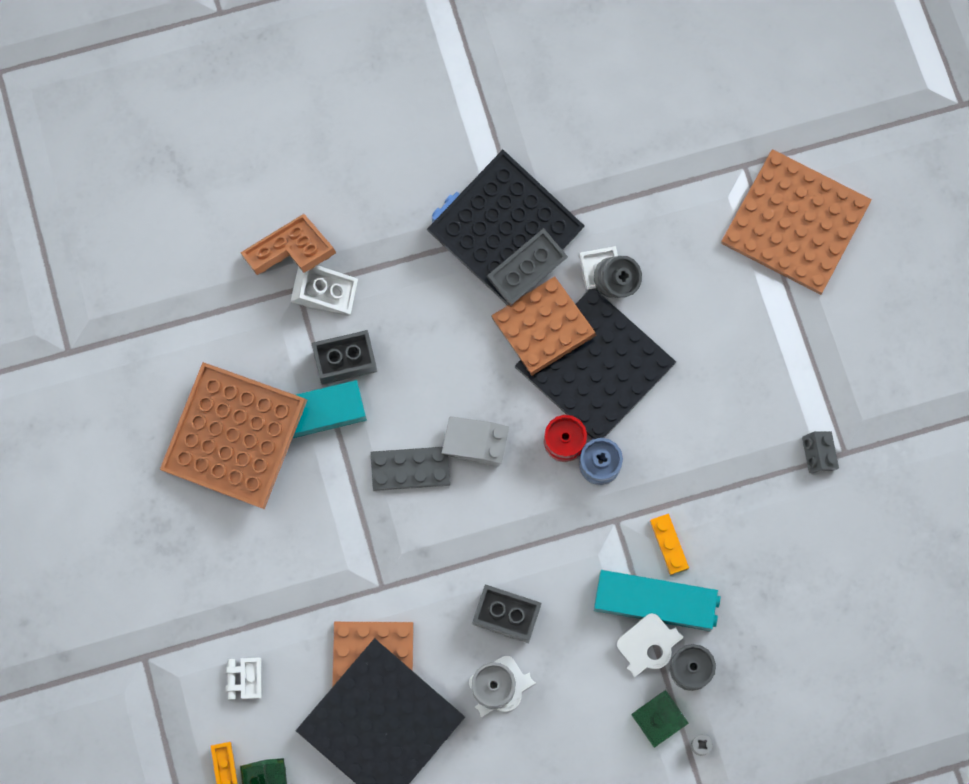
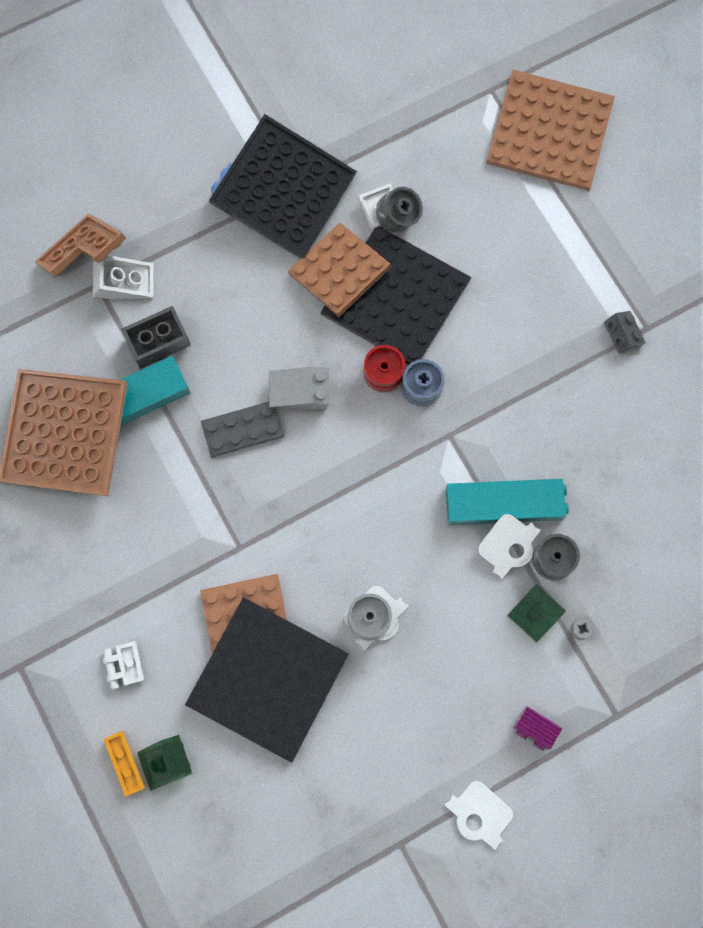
camera: 15 degrees left, 0 degrees up
(506, 613) = (366, 545): dark grey brick -> none
(527, 266) = (311, 217): dark grey plate -> none
(669, 544) = (505, 447): light orange plate -> none

